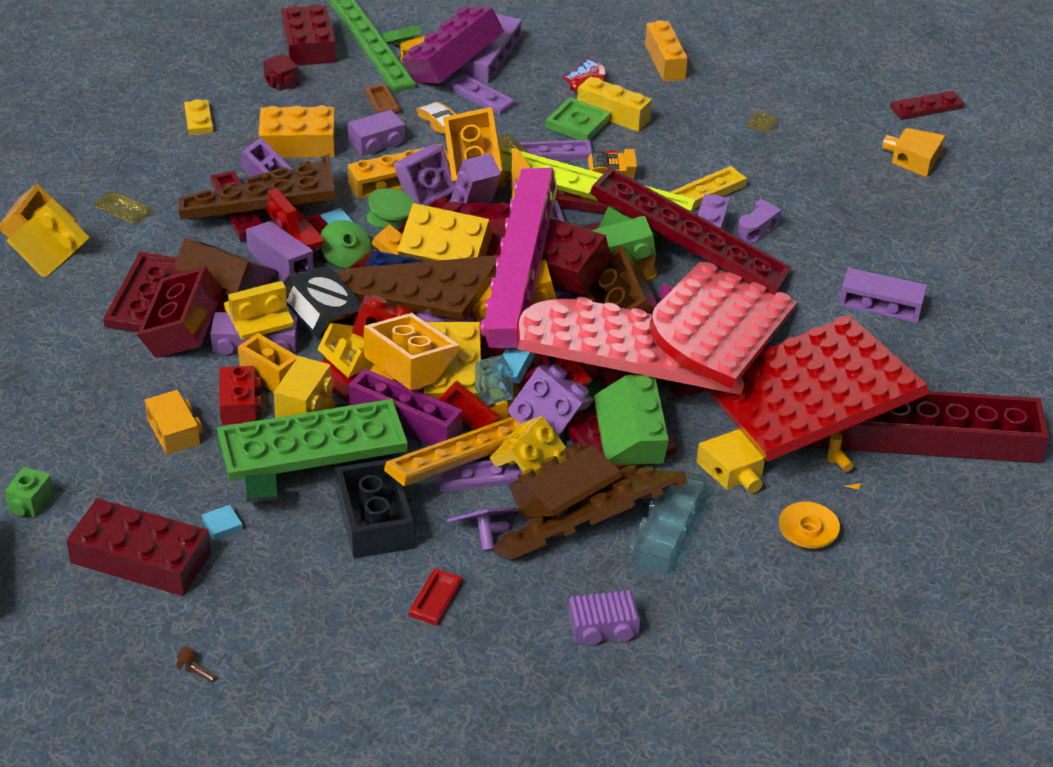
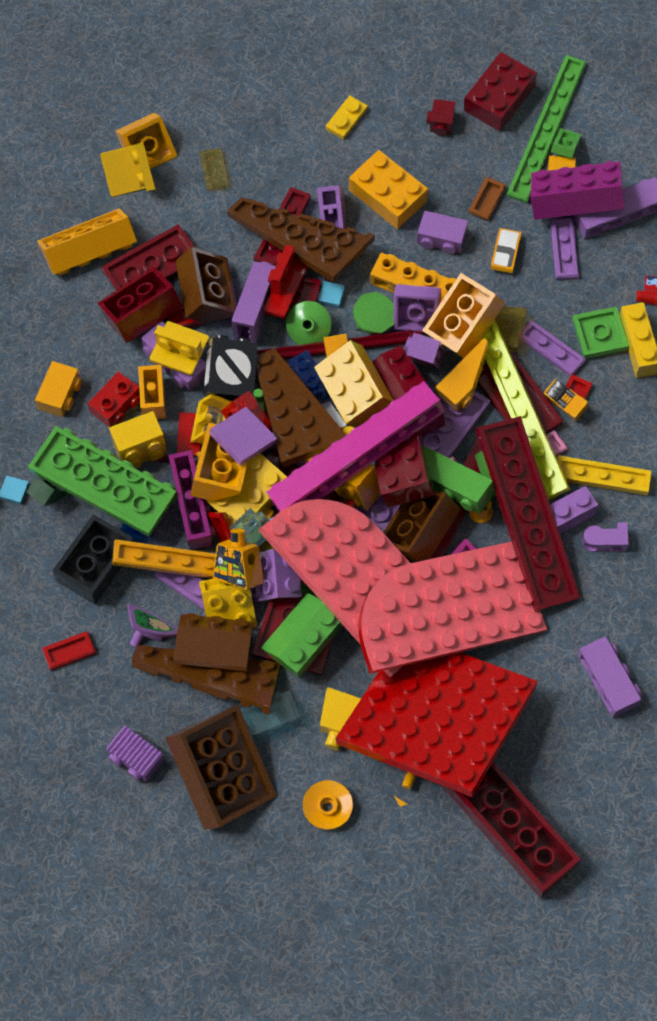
camera: 50 degrees right, 25 degrees up
(66, 311) = (87, 241): none -> light orange slope
(407, 314) = (243, 436): none -> medium lavender tile
(516, 400) = (238, 561): none -> light orange torso
(695, 560) = (221, 767): none -> reddish brown slope

